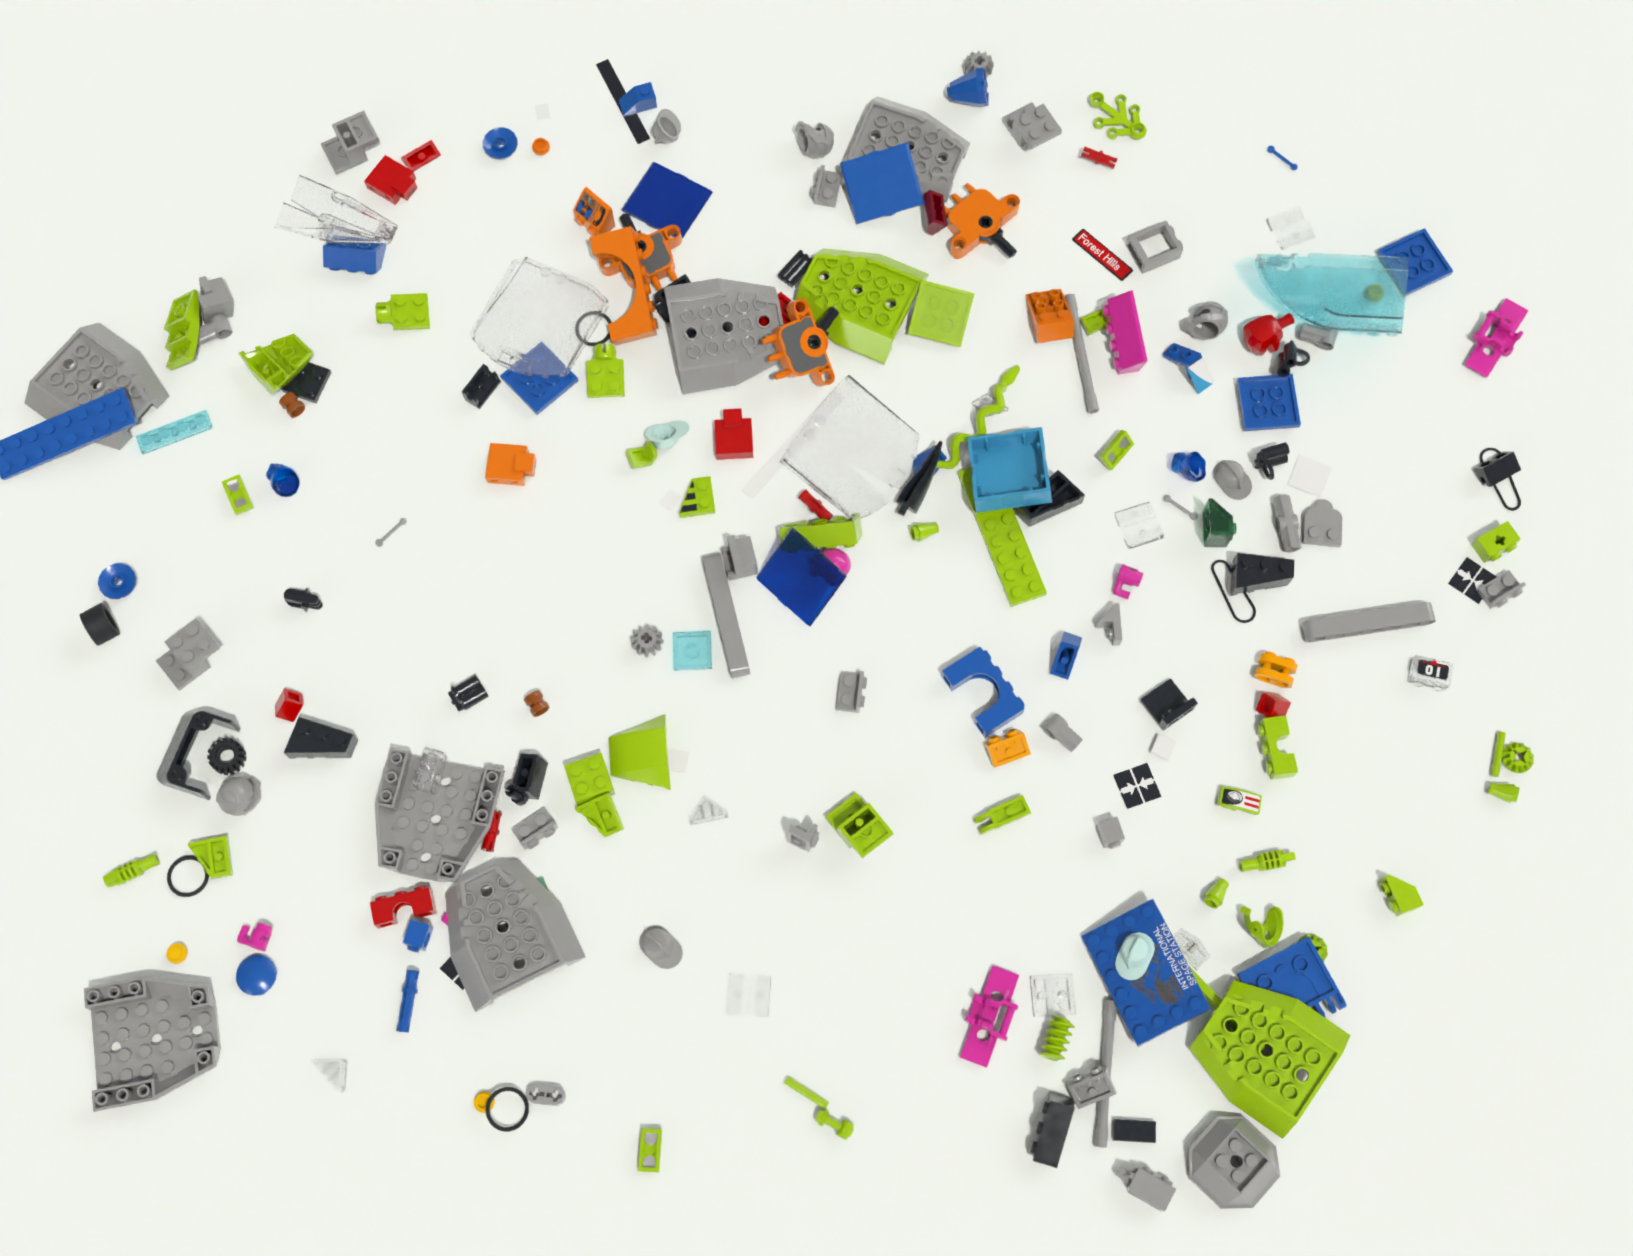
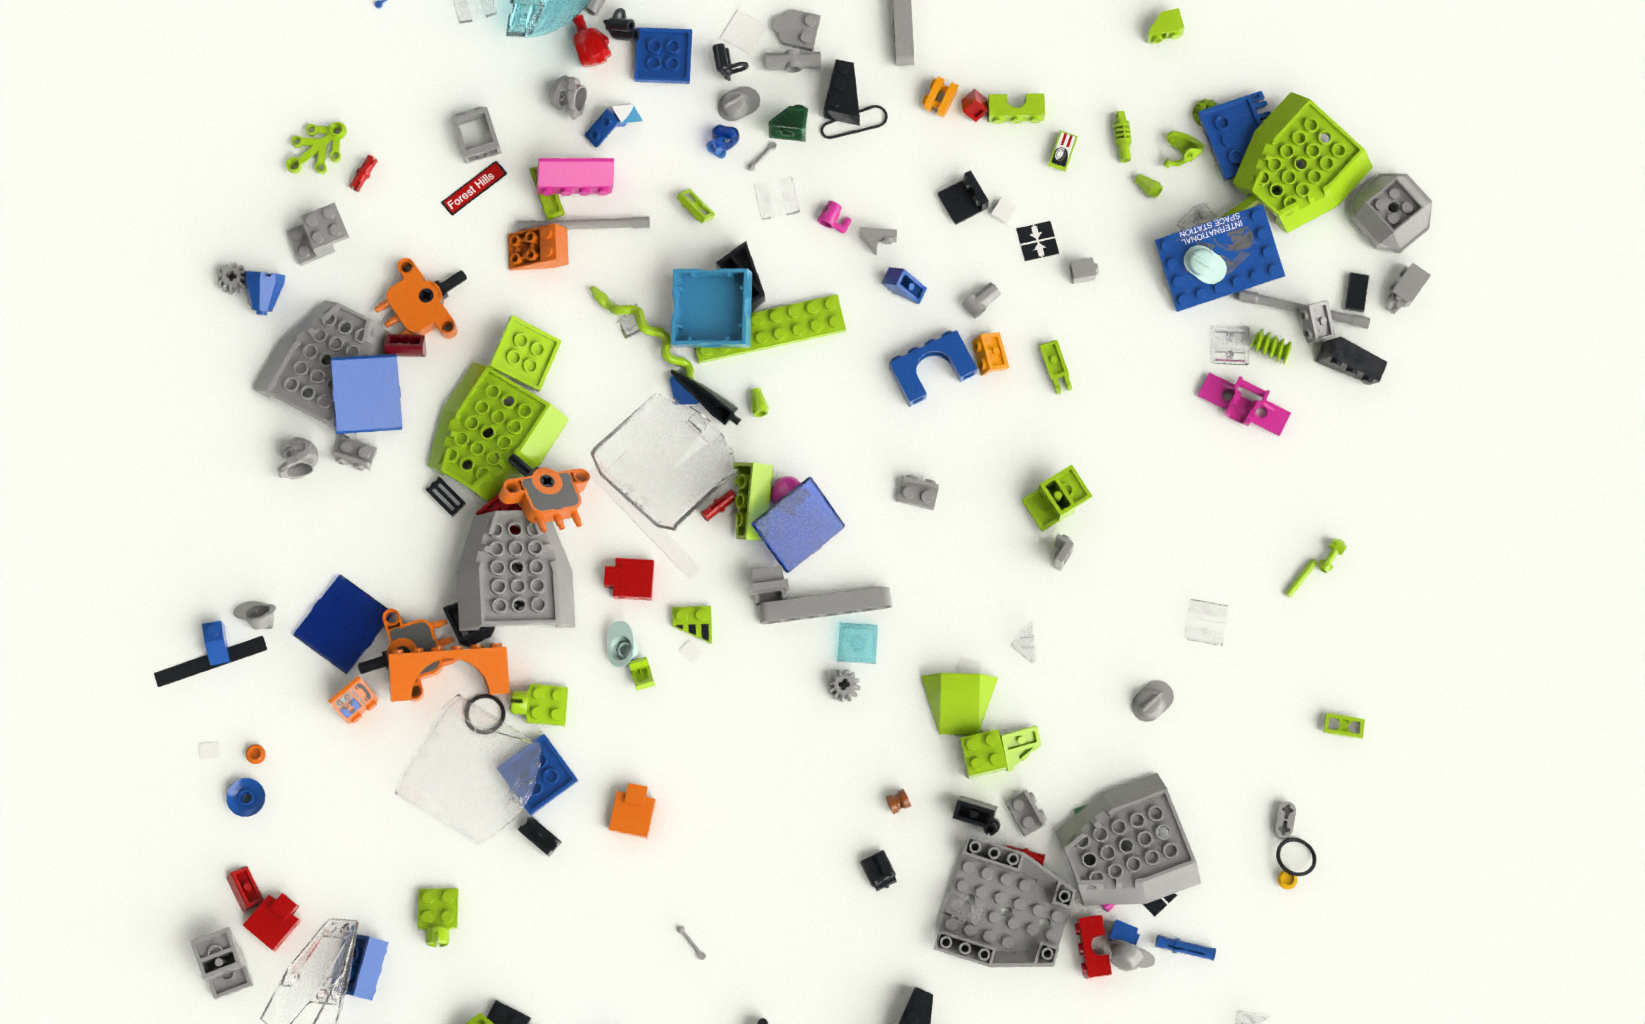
camera: 85 degrees left, 5 degrees up
(390, 940) = (1130, 957): none -> light grey piece

